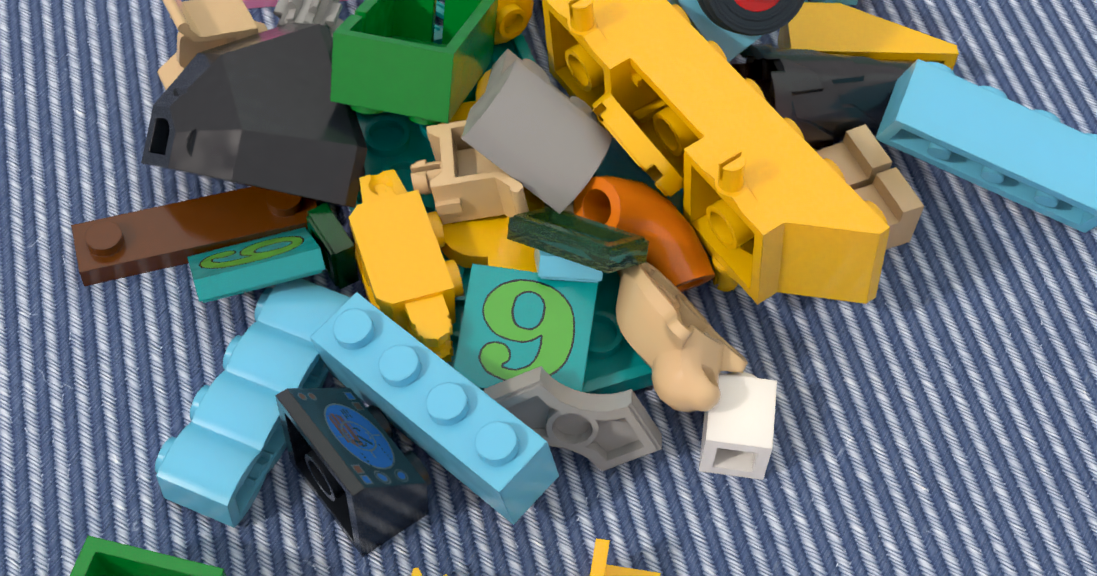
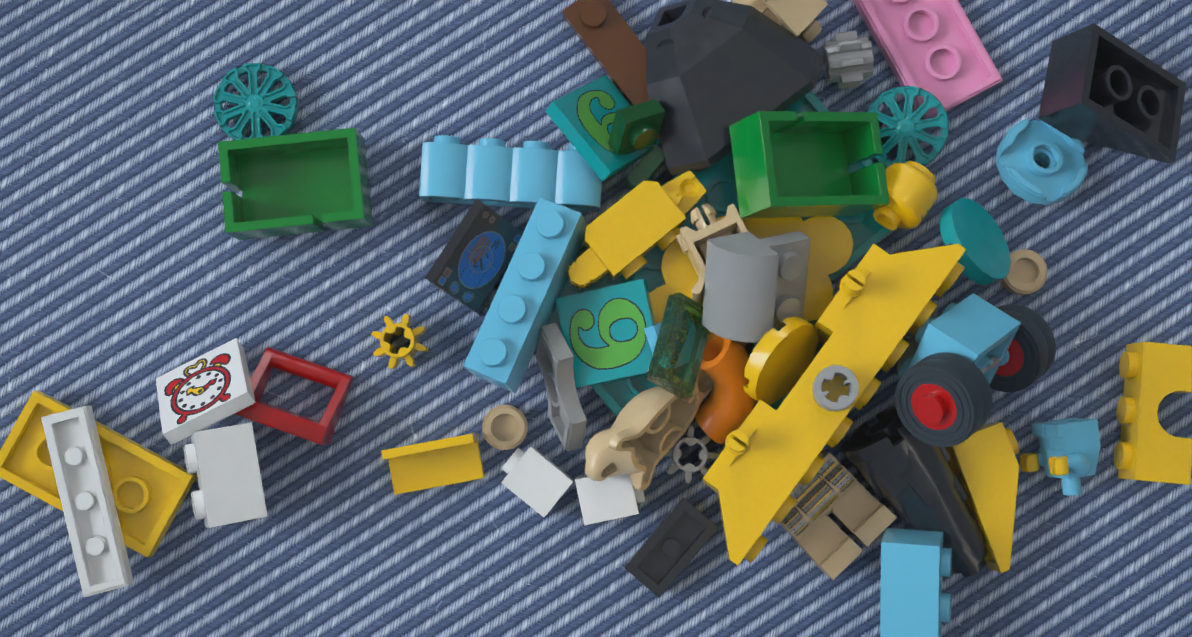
camera: 75 degrees right, 30 degrees up
(278, 205) = (636, 127): none -> dark green plate
(599, 518) = (505, 427): none -> tan tile
(688, 502) = (535, 479): none -> white brick
(696, 48) = (827, 375): none -> light grey bush
(723, 309) = (702, 455): none -> light grey gear
(830, 379) = (670, 547): none -> black plate

